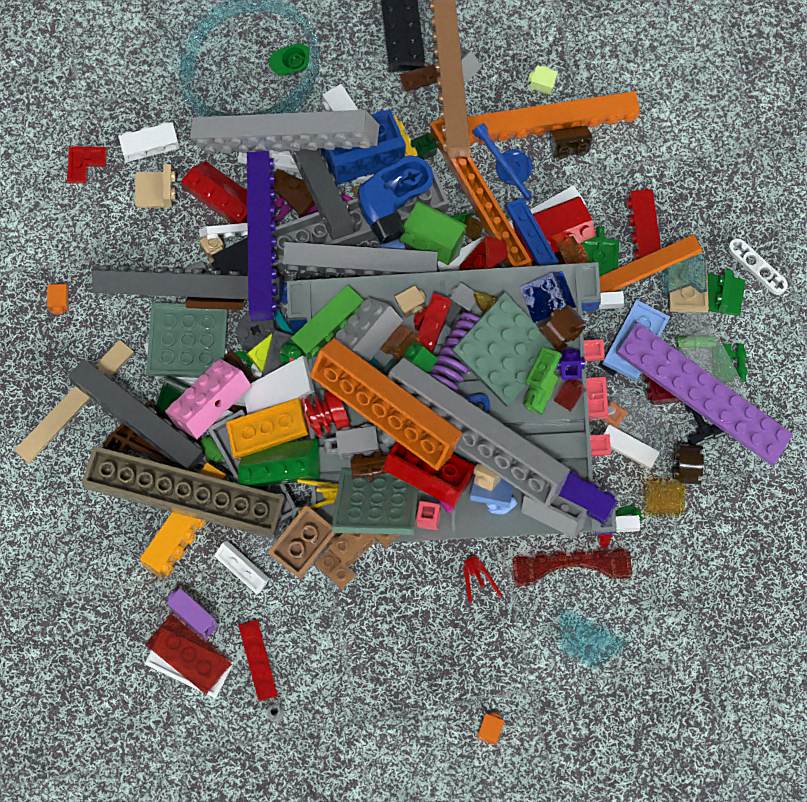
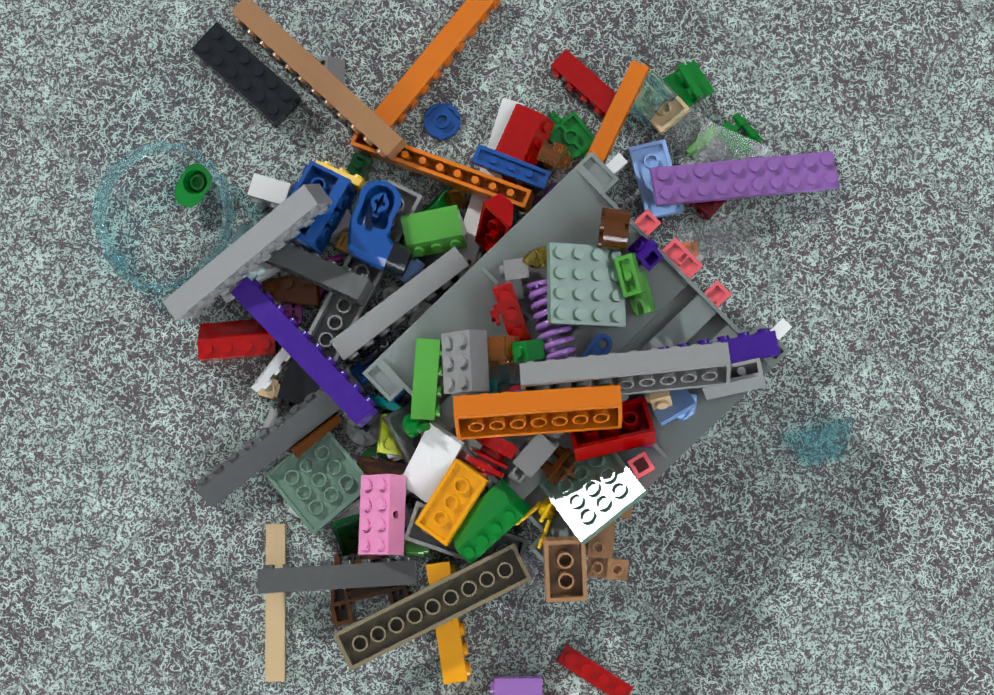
camera: 35 degrees left, 10 degrees up
(58, 298) = (188, 535): orange brick -> none
(80, 159) = (101, 408): red plate -> none
(148, 141) = (142, 348): white brick -> none
(155, 188) = (182, 381): tan bracket -> none
(241, 567) = (519, 616): white plate -> none
(411, 301) = (476, 307): tan brick -> none
(419, 78) = (305, 111): reddish brown plate -> none
(473, 567) = (690, 462): red plant -> none
(482, 133) = (396, 117): blue piece -> none
(490, 728) = (809, 571): orange brick -> none
(543, 79) = (402, 30): yellowish green brick -> none
(547, 295) = (577, 212): clear blue bracket -> none
(570, 141) = (468, 63): dark brown slope -> none
(570, 394) = (664, 276): clear red bracket -> none
(613, 565) = (735, 427): clear red arch -> none
(629, 510) = (764, 314): green piece -> none
(631, 447) = (724, 266): white tile -> none
(664, 499) = (781, 291): clear yellow slope -> none
(688, 464) = (779, 243): dark brown brick -> none
(704, 431) = (767, 207): black bar -> none
(759, 265) = (694, 44): white beam -> none

